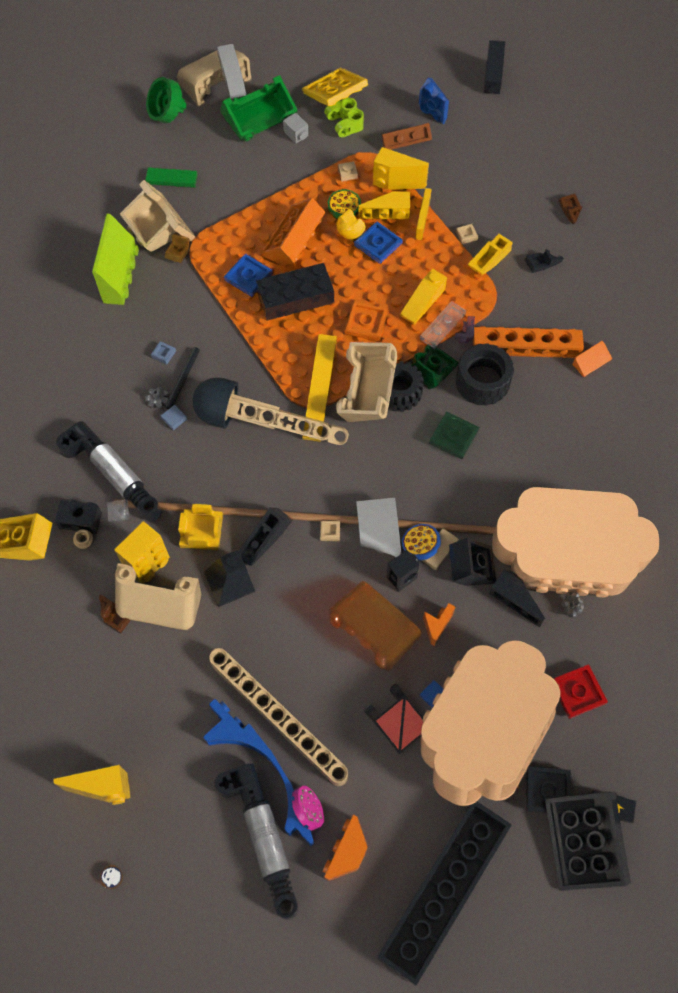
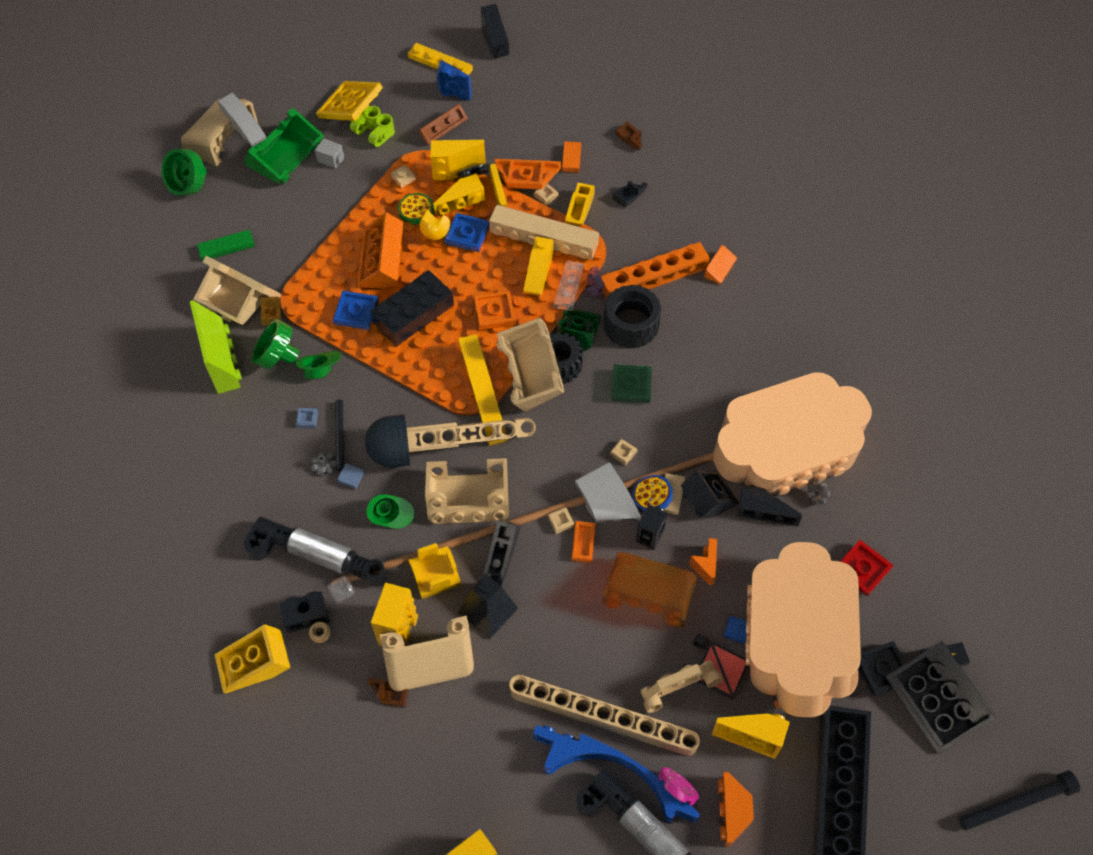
camera: 25 degrees left, 5 degrees down
(164, 280) = (274, 345): none -> green piece
(188, 461) = (390, 511): none -> green piece
(192, 310) = (318, 365): none -> green piece
(259, 475) = (467, 496): none -> tan windscreen
(340, 558) = (583, 542): none -> orange tile
(365, 715) = (672, 682): none -> tan plate
(401, 793) = (755, 732): none -> yellow slope
(415, 493) = (623, 452): none -> tan tile
(416, 188) = (479, 168): none -> black dish
(425, 70) = (432, 58): none -> yellow plate
(459, 208) = (526, 173): none -> orange wing
(459, 277) = (526, 226): none -> tan brick
(507, 208) = (571, 157): none -> orange tile
(664, 974) = (1065, 783): none -> black piece

